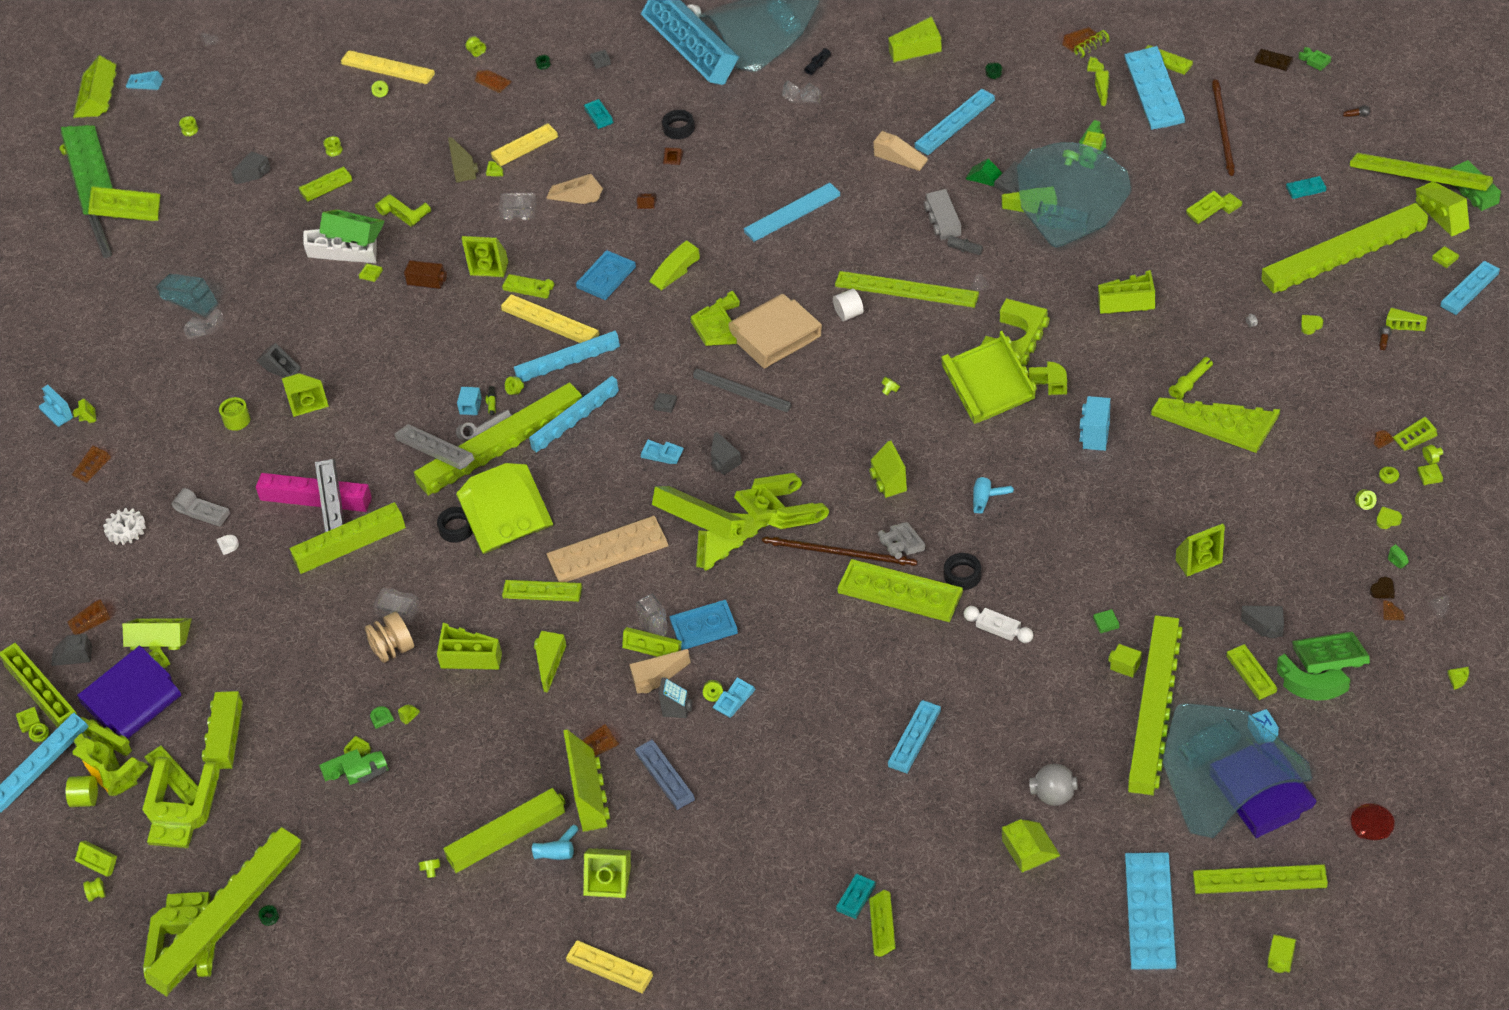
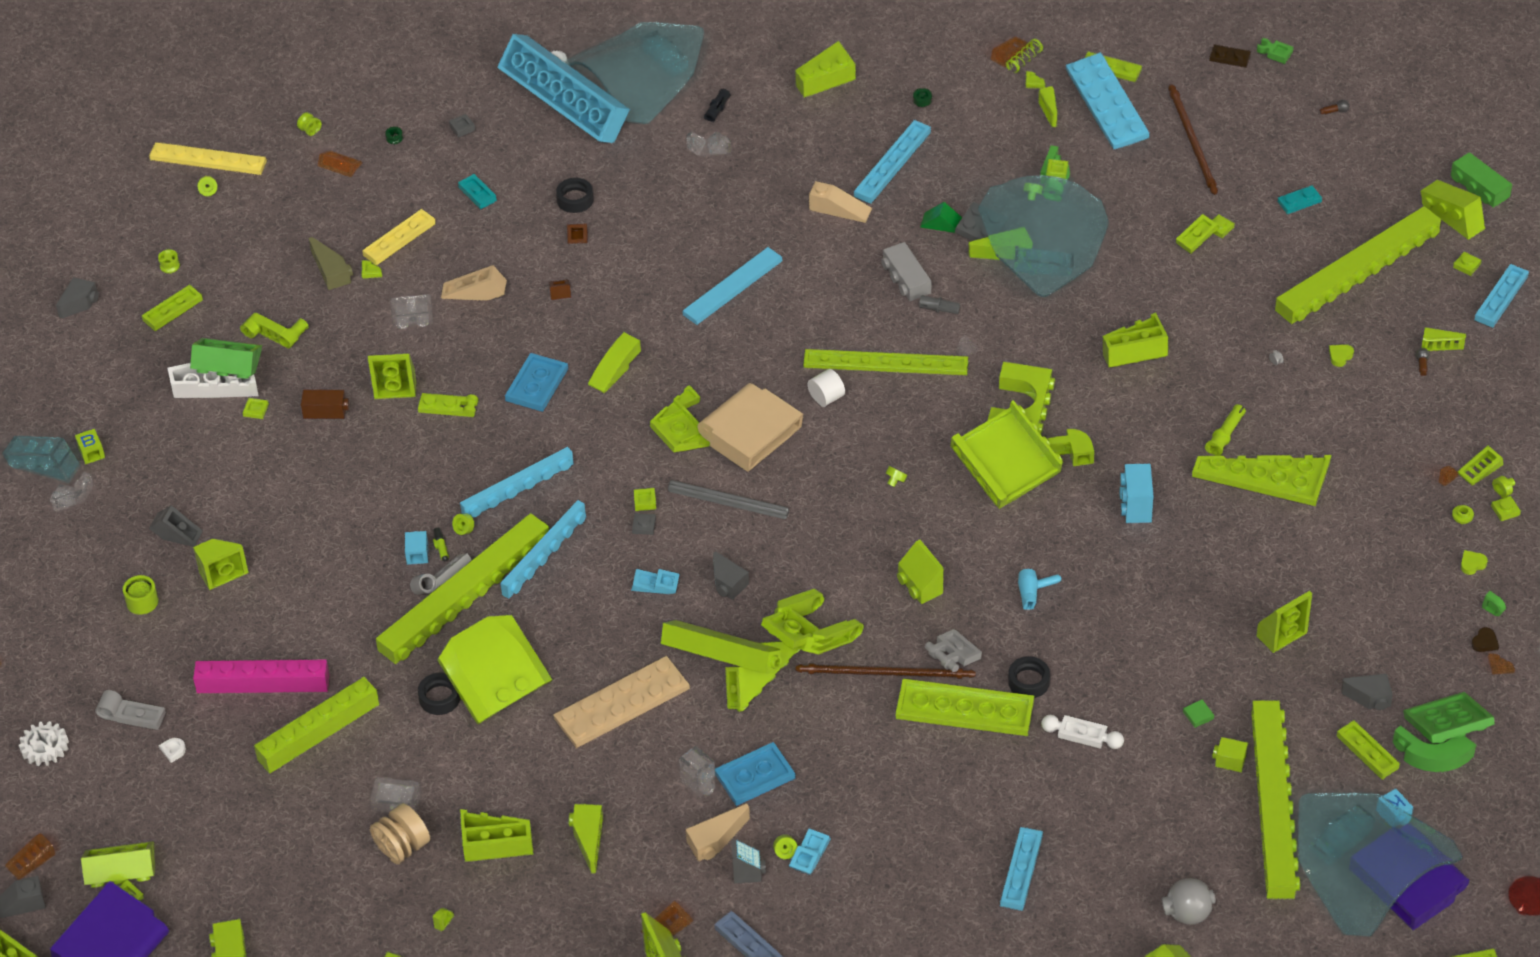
camera: 15 degrees left, 0 degrees up
(228, 289) = (89, 446): none -> lime brick
(329, 494) = (287, 678): plate -> none
(381, 716) = (410, 926): bright green tile -> none
(434, 446) = (393, 606): light grey plate -> none
(542, 590) = (558, 757): lime tile -> none
(548, 319) = (484, 442): light yellow plate -> none
(649, 643) = (700, 802): lime plate -> none
(670, 382) = (644, 499): none -> lime plate
(1365, 499) = (1445, 544): lime tile -> none
(1421, 171) = (1422, 170): lime tile -> none

